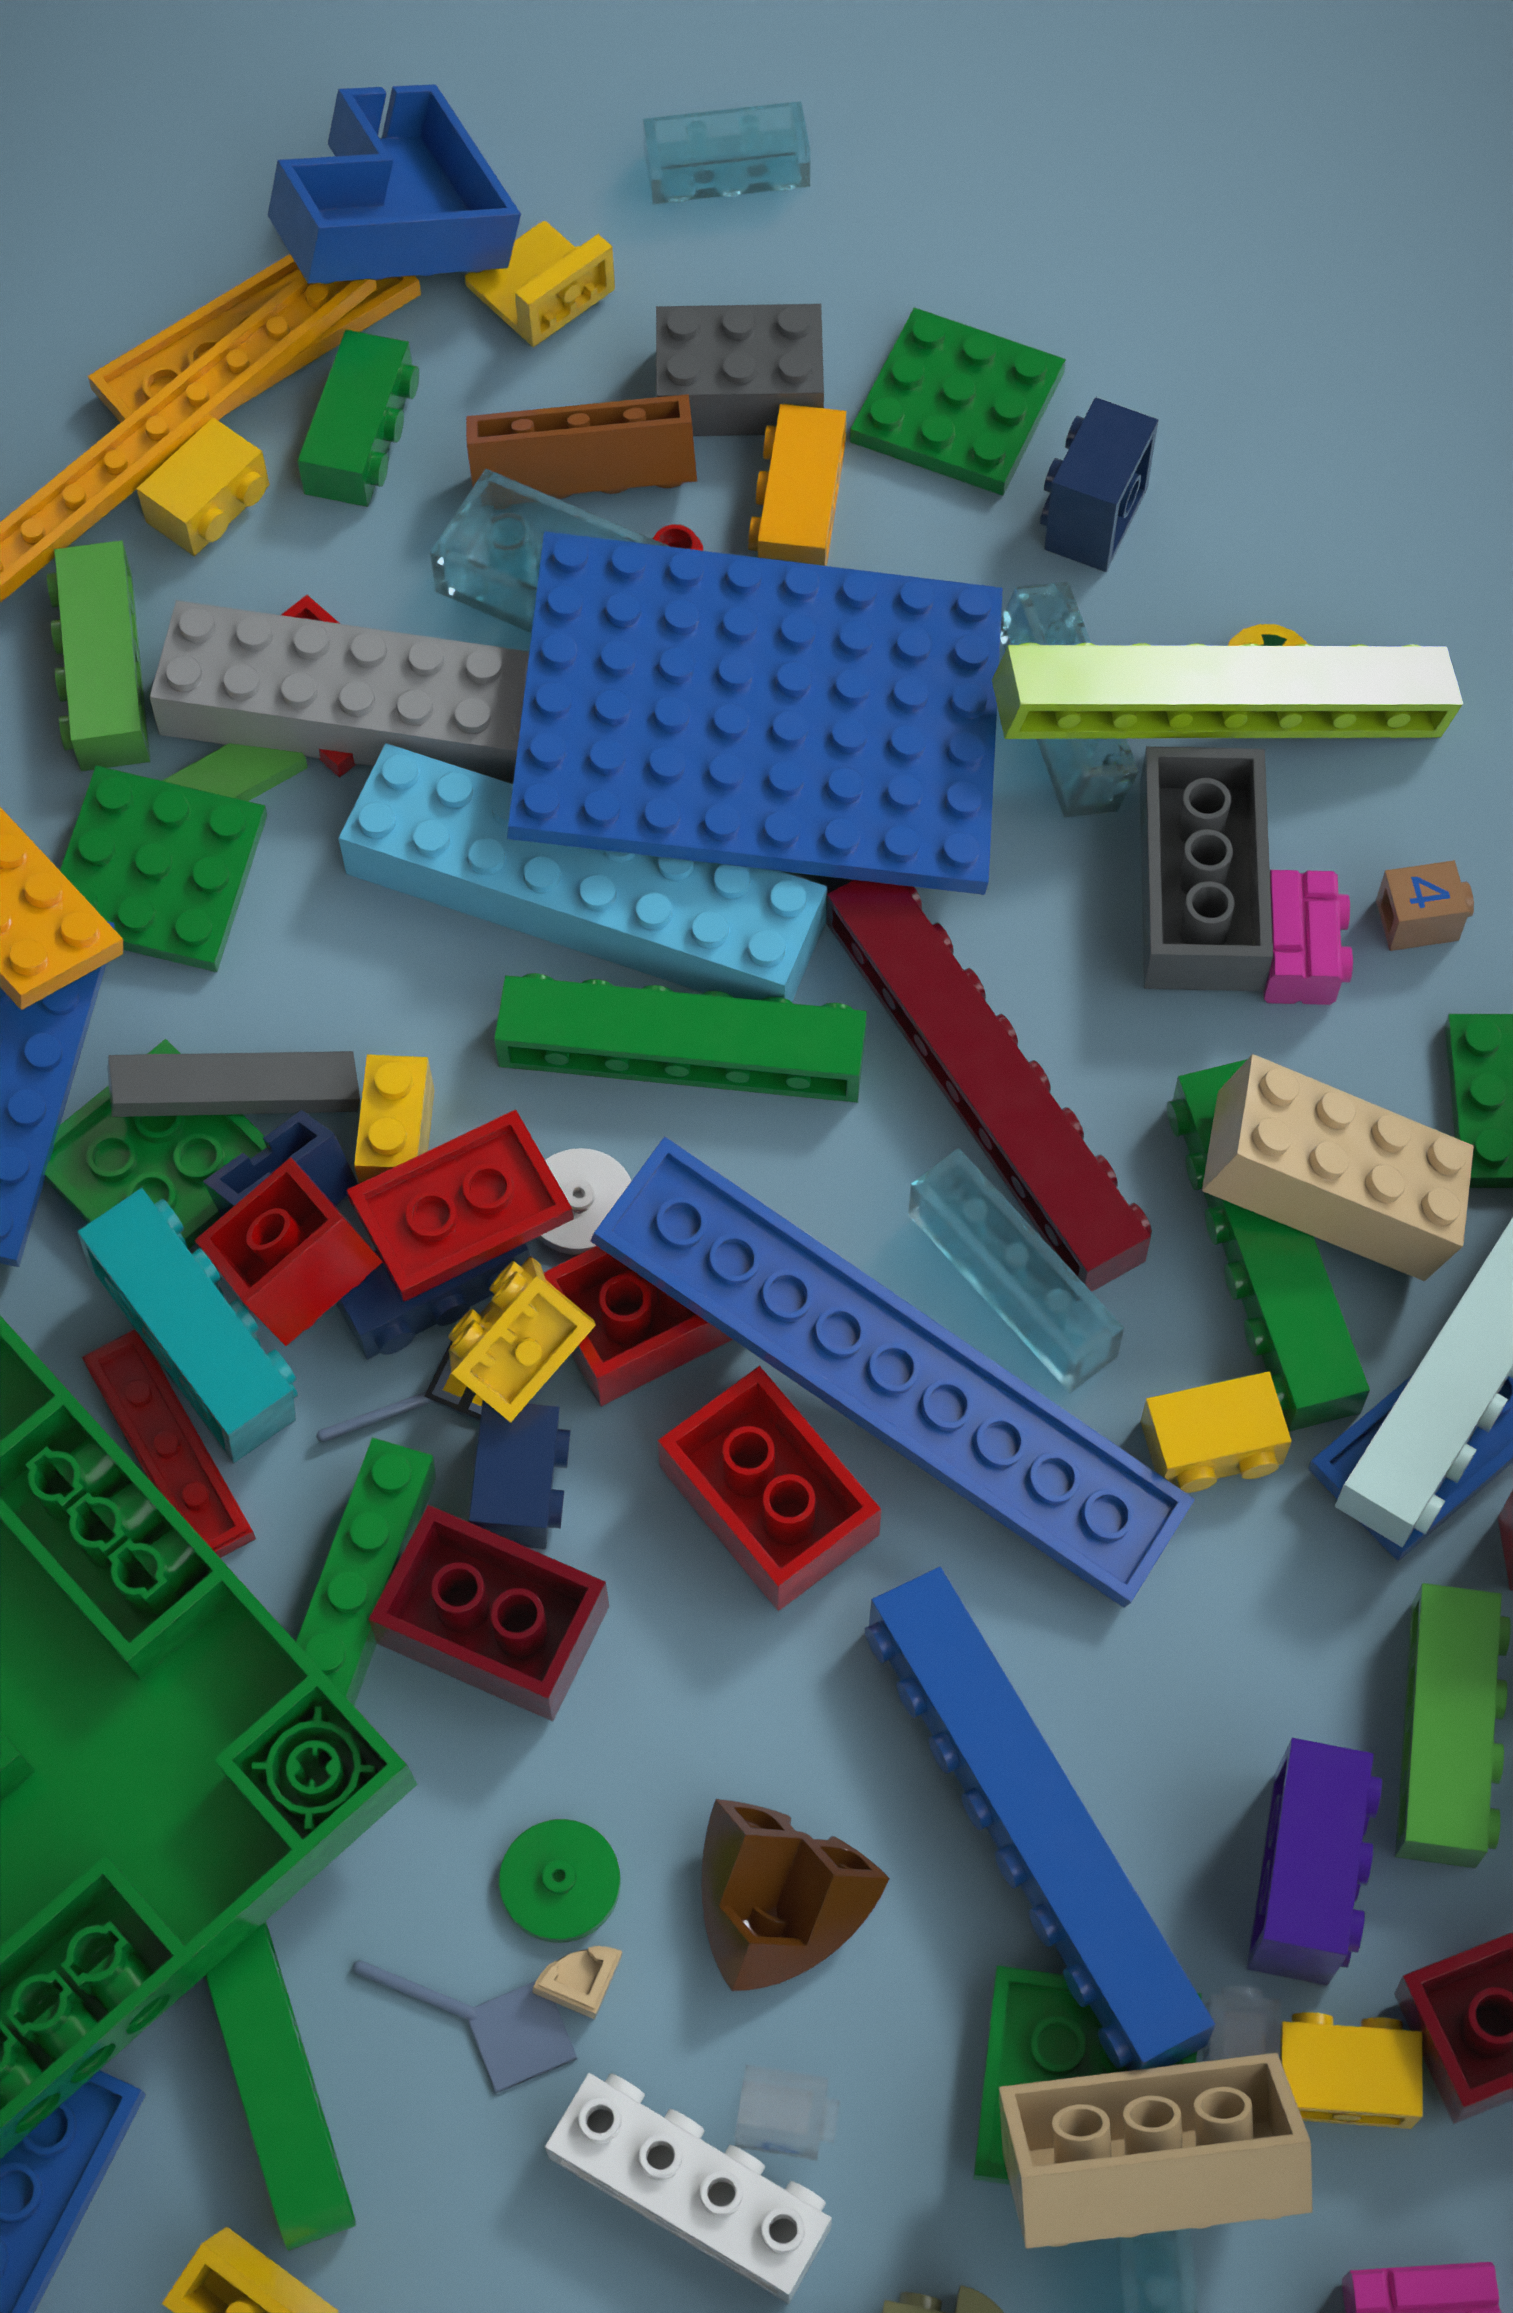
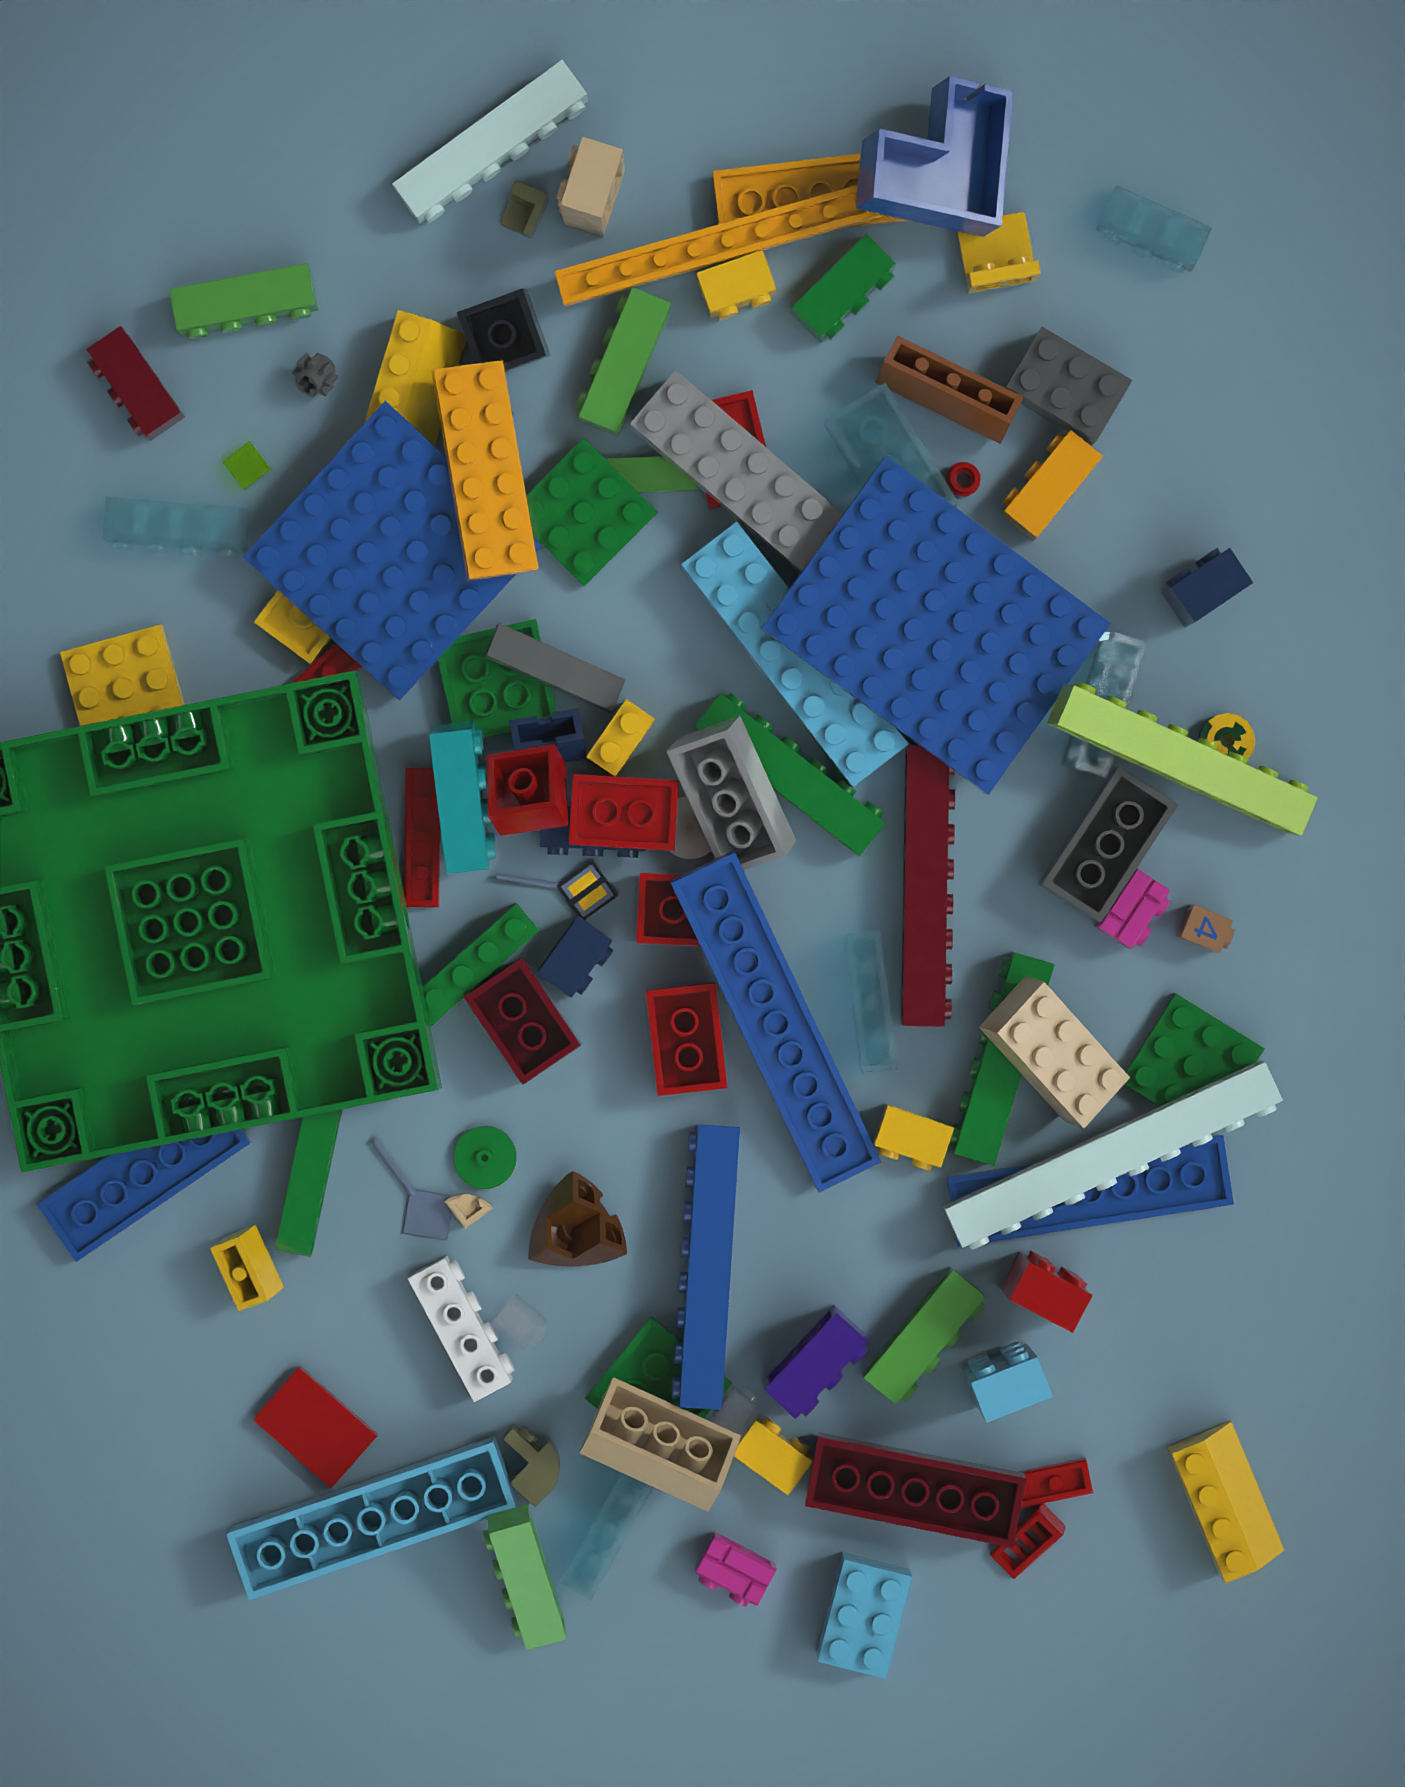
camera: 30 degrees right, 25 degrees up
(516, 1338) = (608, 897): yellow bracket -> none
(602, 1081) = (731, 793): none -> light grey brick
(957, 401) = (1176, 472): green plate -> none

